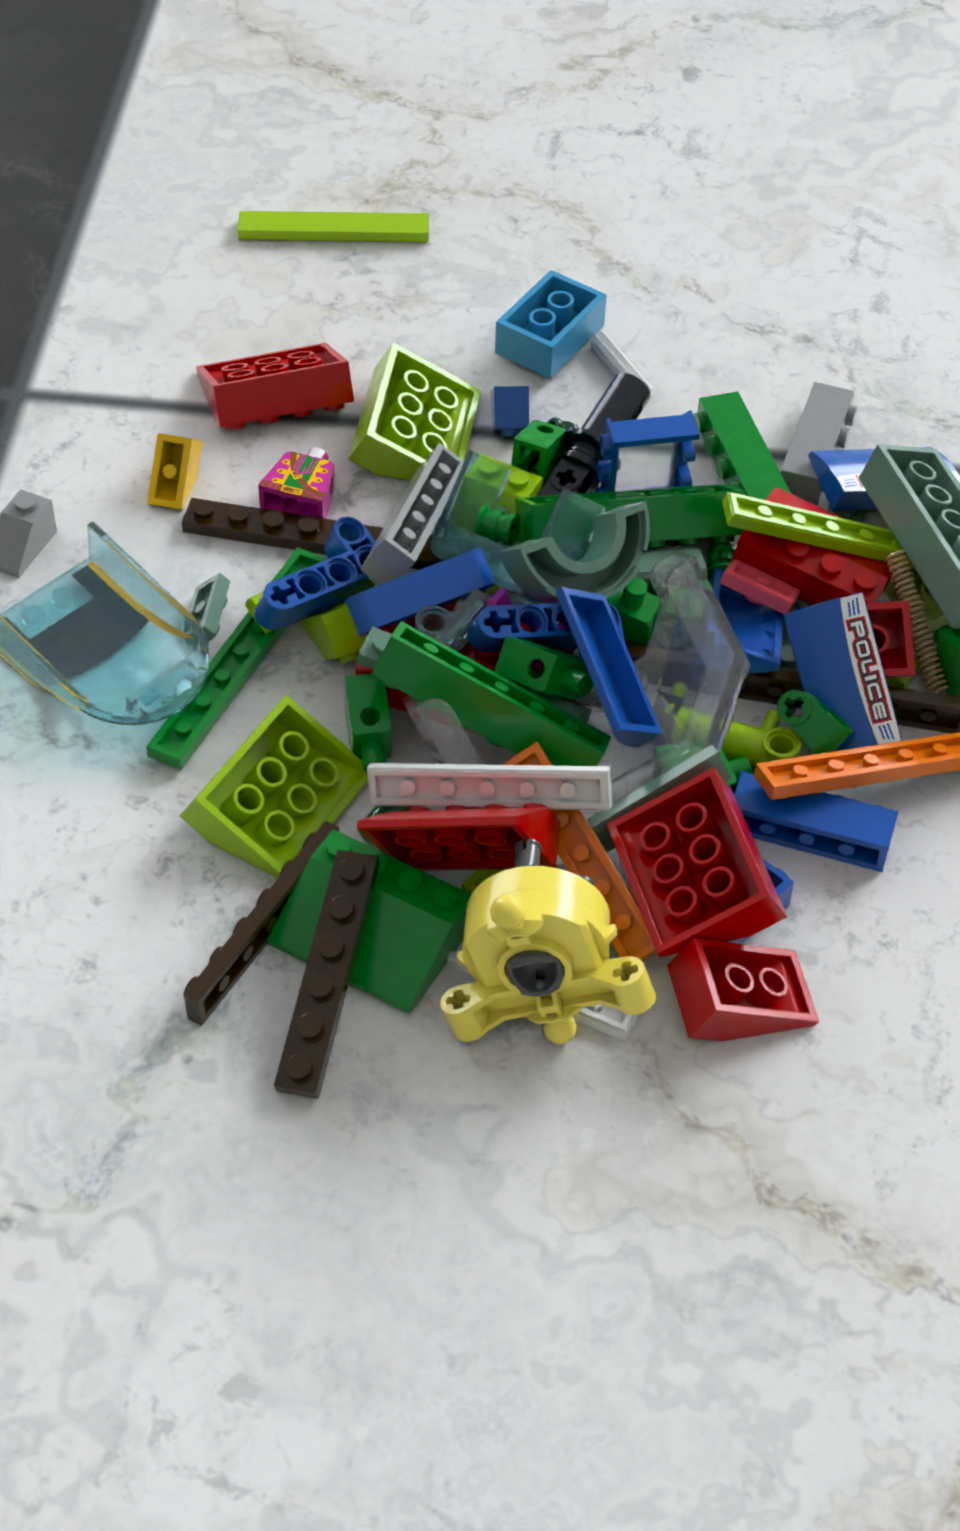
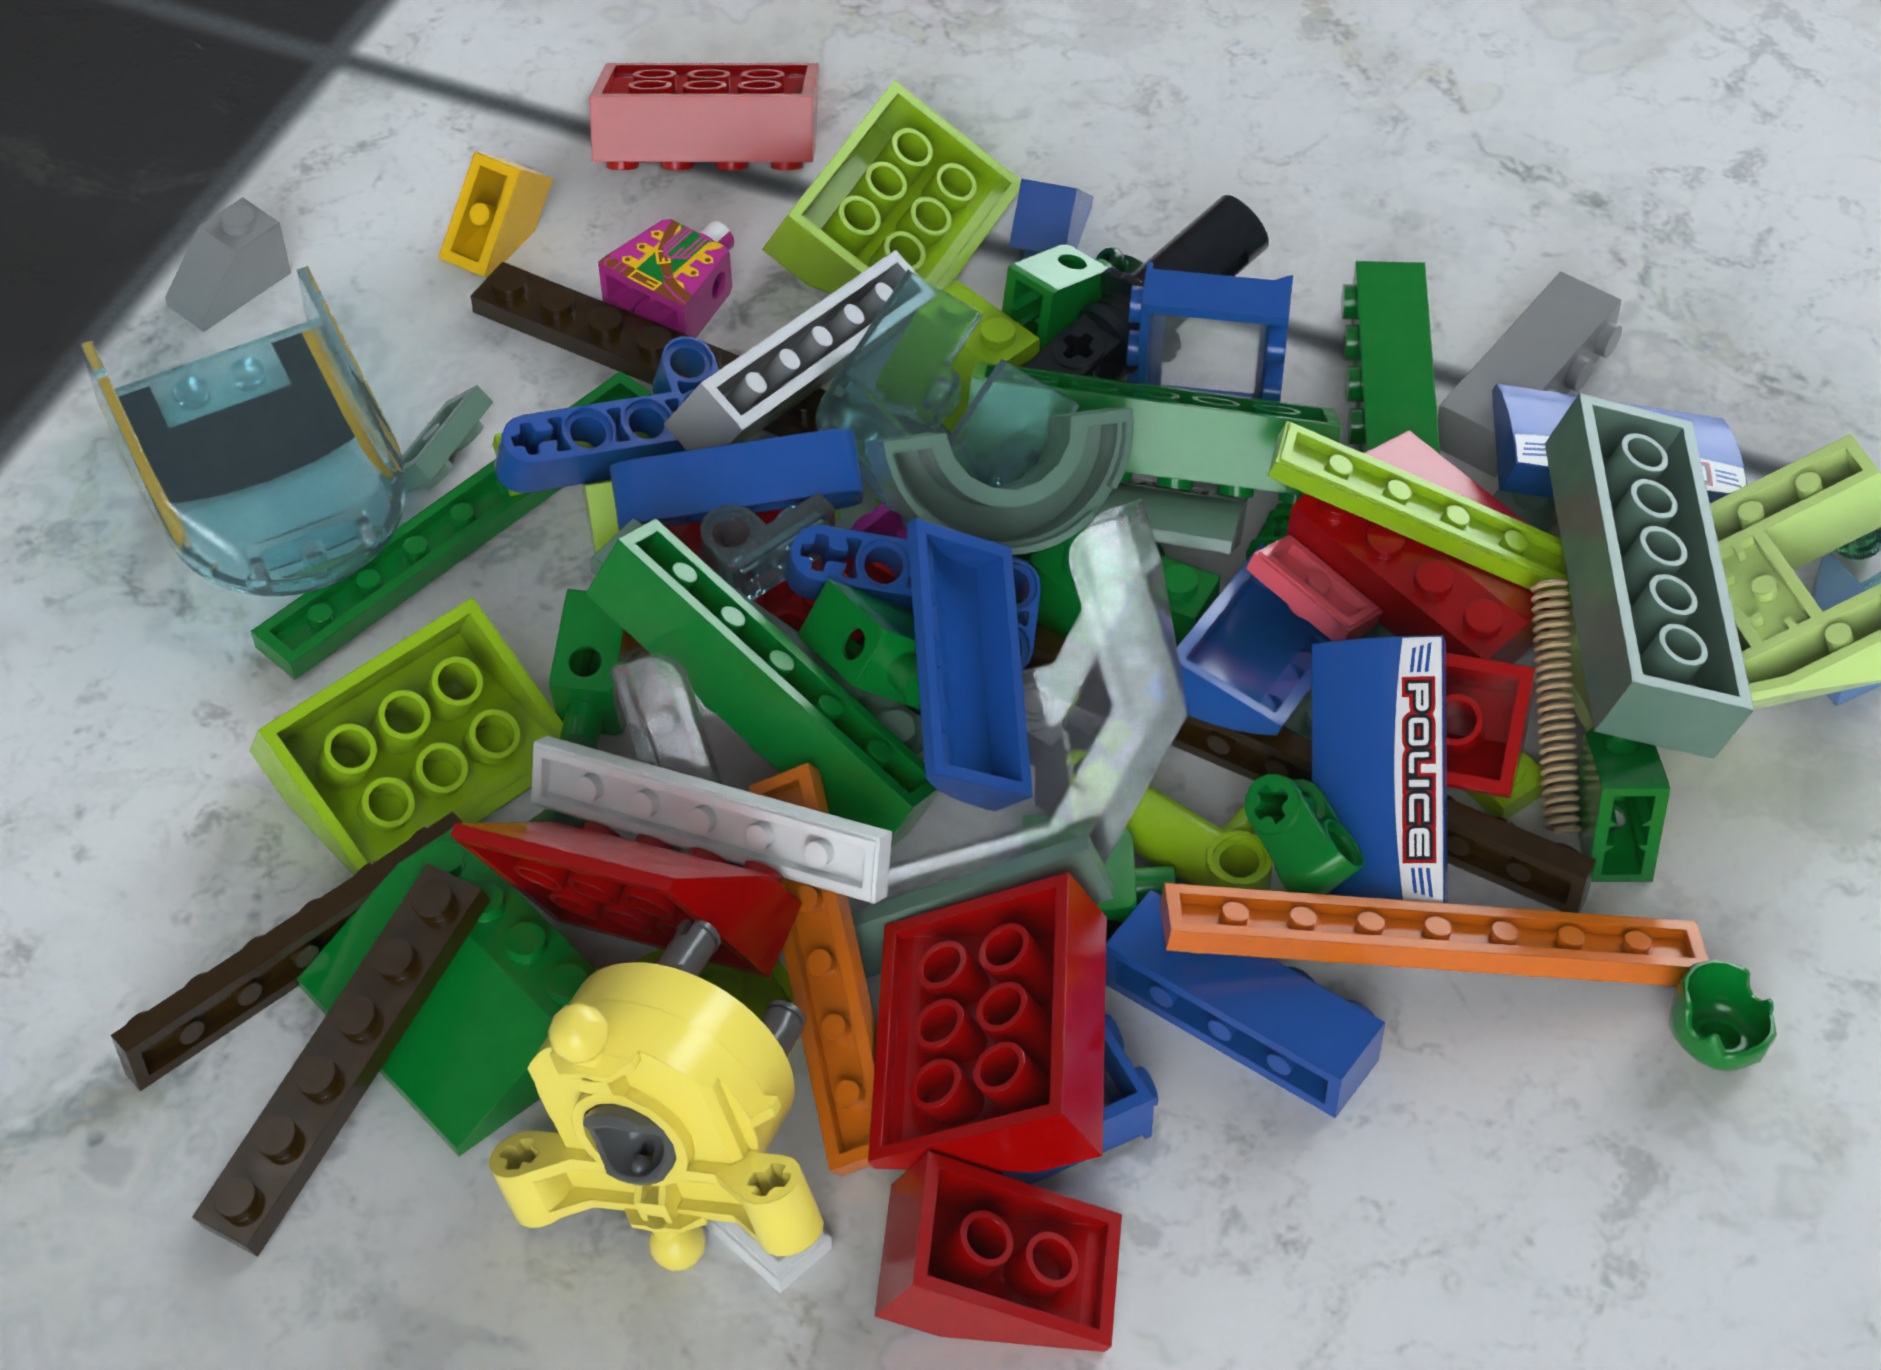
camera: 20 degrees right, 0 degrees up
(497, 525) = (924, 399): green bush -> none
(550, 324) = (1171, 98): dark azure brick -> none
(614, 357) = (1264, 187): white axle -> none

